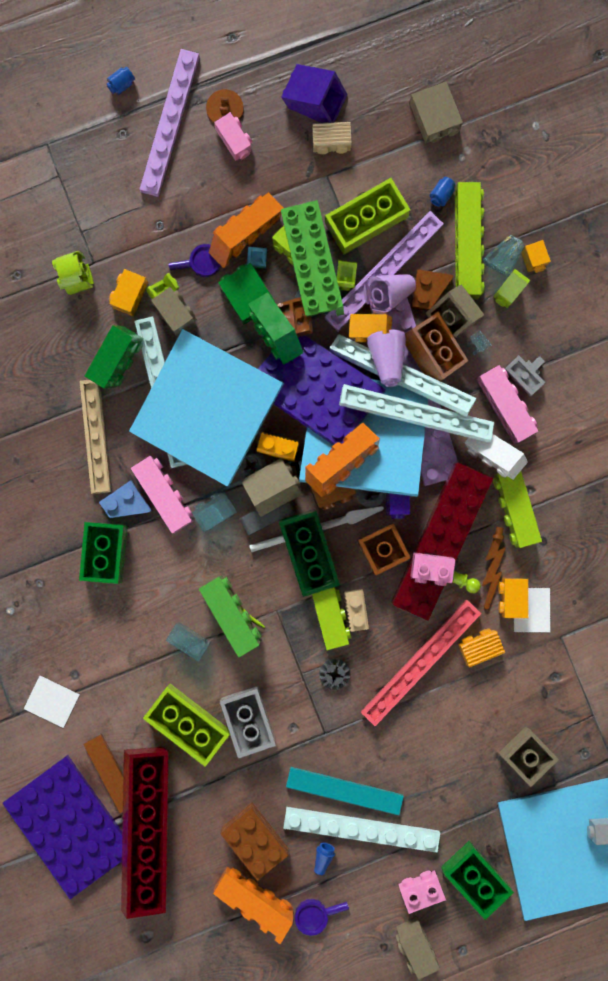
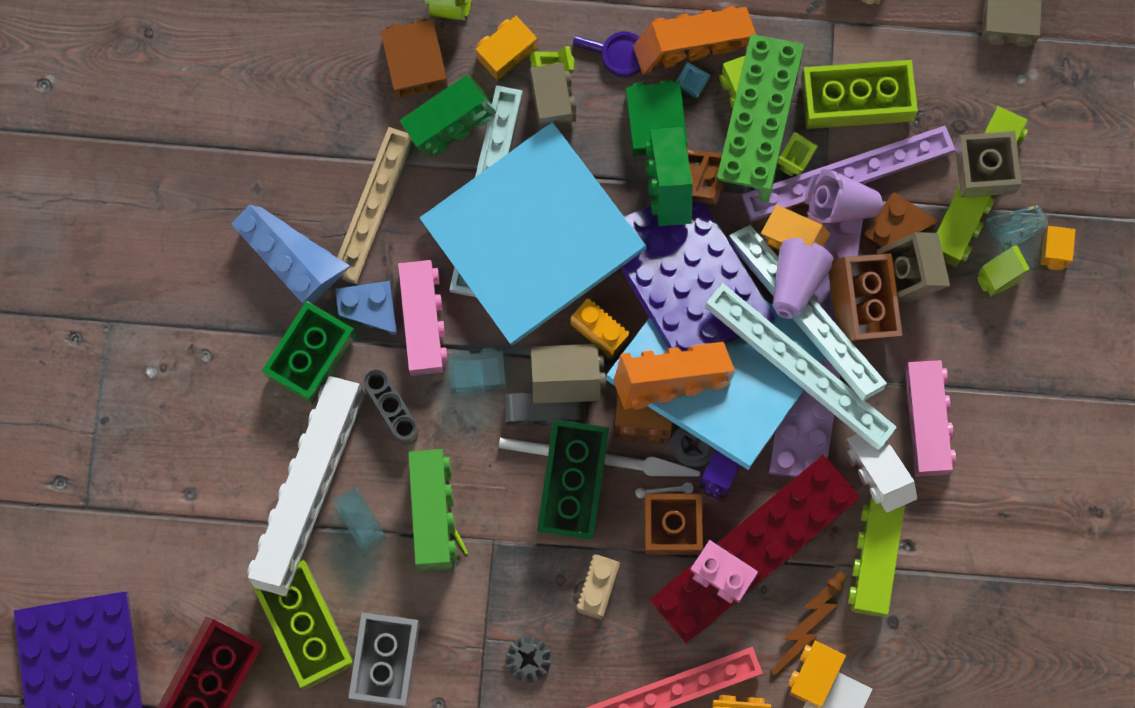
camera: 35 degrees right, 10 degrees down
(51, 701) = (143, 513): white sticker -> none
(58, 495) = (290, 254): none -> medium blue wedge
(72, 328) = (414, 58): none -> dark orange brick
(107, 768) = (169, 634): dark orange tile -> none
(144, 639) = (306, 486): none -> white brick
(162, 559) = (382, 397): none -> dark grey beam
(251, 456) = (560, 326): dark grey gear -> none
(331, 618) = (560, 581): lime brick -> none
(379, 520) = (687, 488): none -> white hinge
(442, 191) = (973, 109): blue brick -> none
(472, 223) = (988, 164): none -> dark tan brick
(472, 585) = (768, 631): lime pin -> none
(480, 341) = (932, 321): clear light blue tile -> none
(526, 374) = (973, 391): light grey hinge -> none

